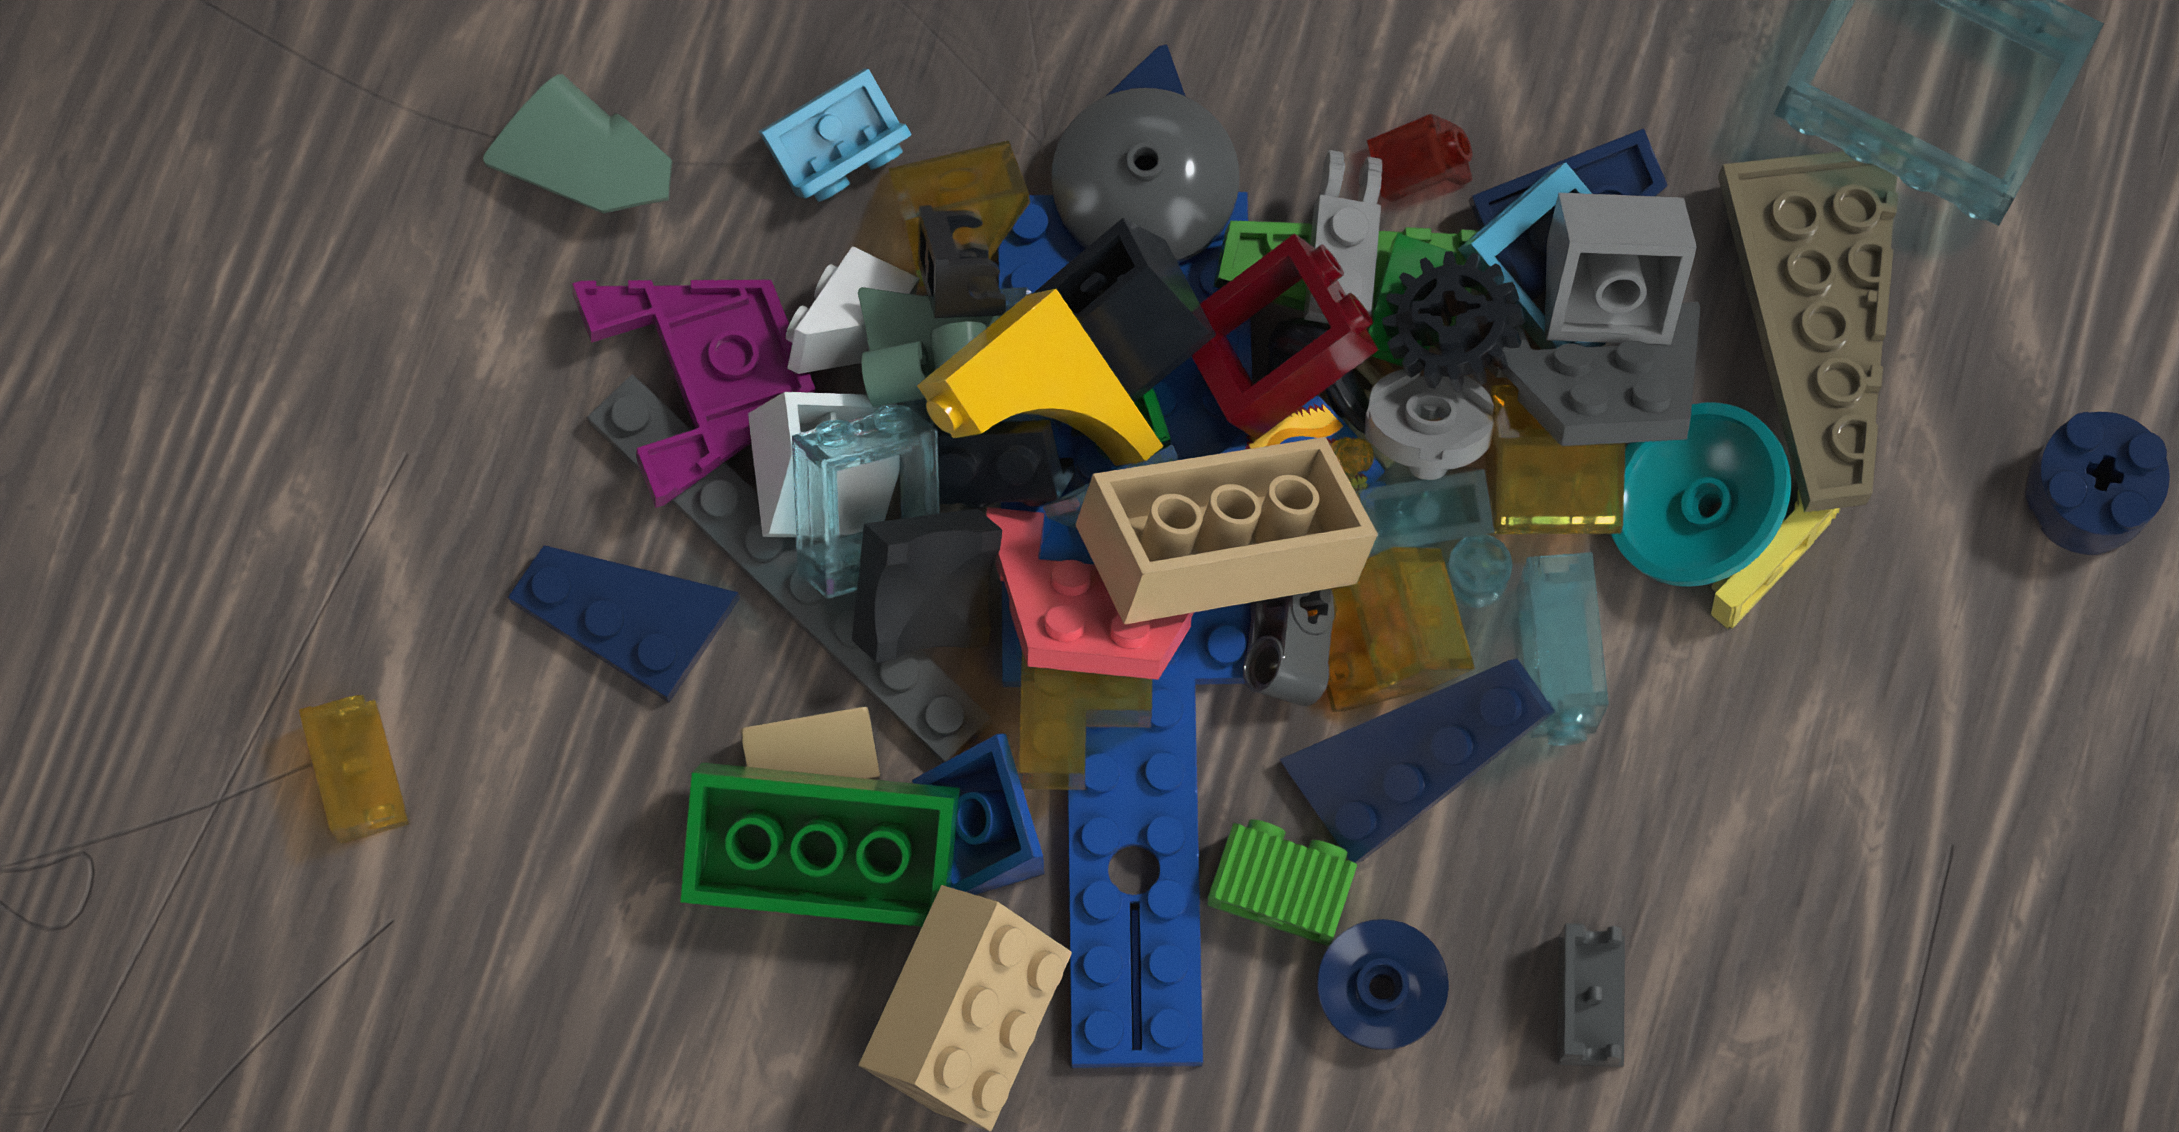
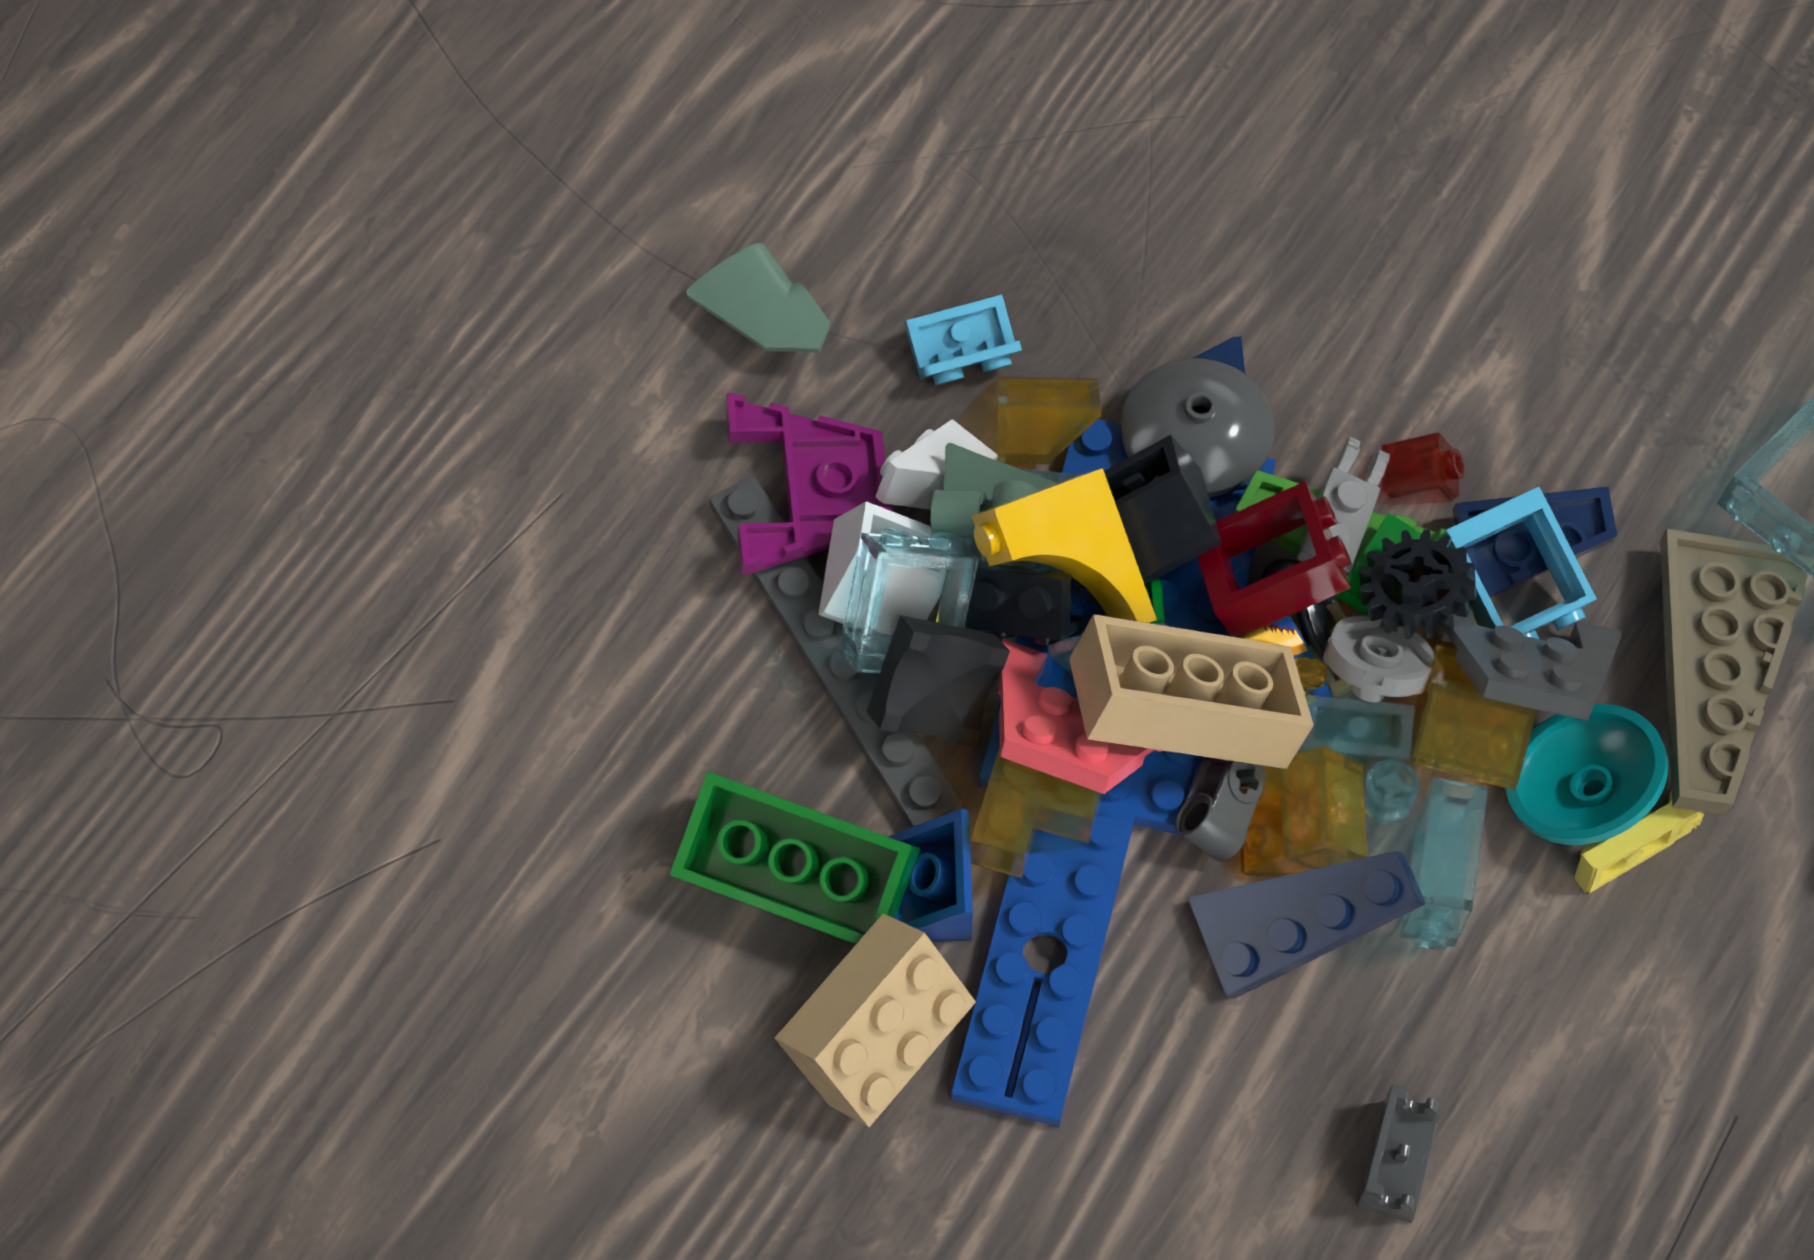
camera: 15 degrees right, 10 degrees down
(354, 768) = (445, 712): clear yellow hinge -> none
(625, 615) = (694, 654): dark blue wing -> none
(817, 744) = (816, 785): tan slope -> none
(956, 276) = (1027, 452): black hinge -> none
(1282, 881) = (1164, 993): bright green brick -> none
(1390, 952) = (1233, 1072): dark blue dish -> none
(1617, 268) = (1561, 576): light grey slope -> none

